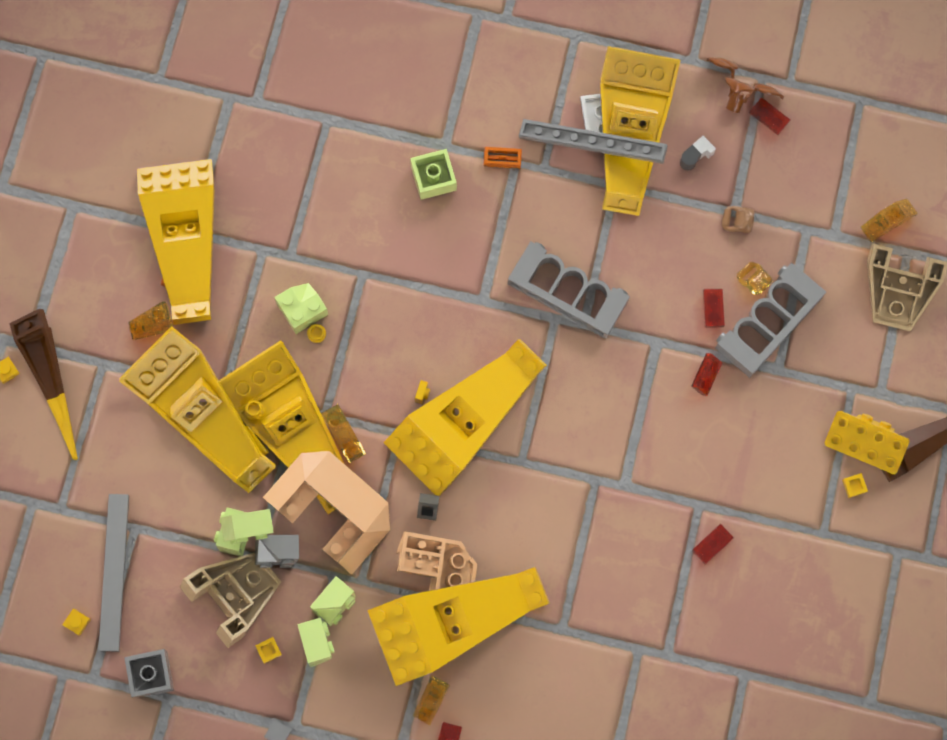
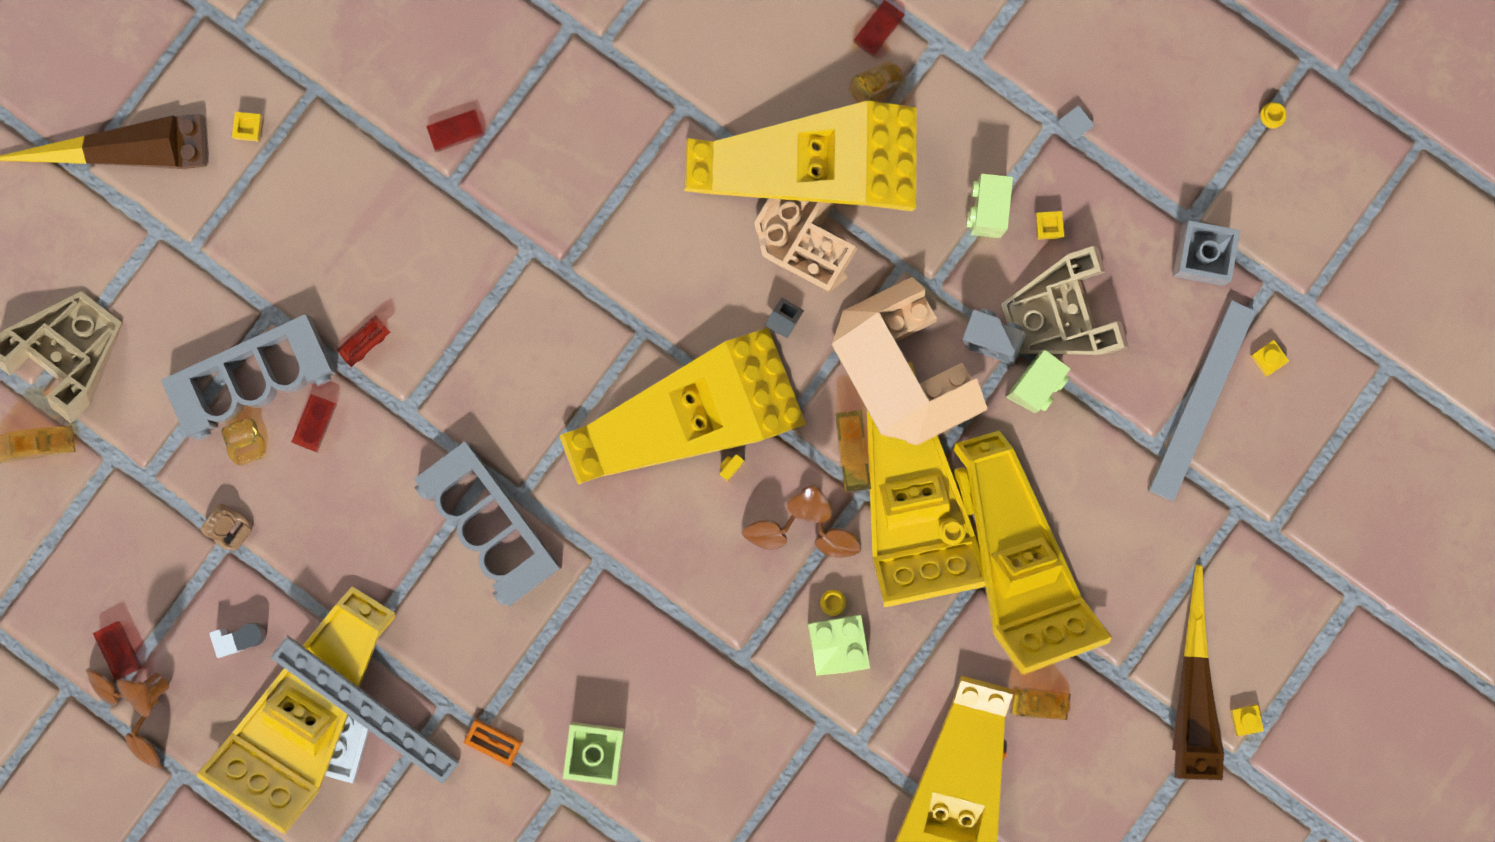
camera: 155 degrees left, 10 degrees up
(241, 526) = (1025, 368): yellowish green slope -> none
(333, 602) = (948, 246): yellowish green slope -> none
(358, 378) = (807, 505): none -> dark orange plant
(867, 441) = (203, 171): yellow bracket -> none

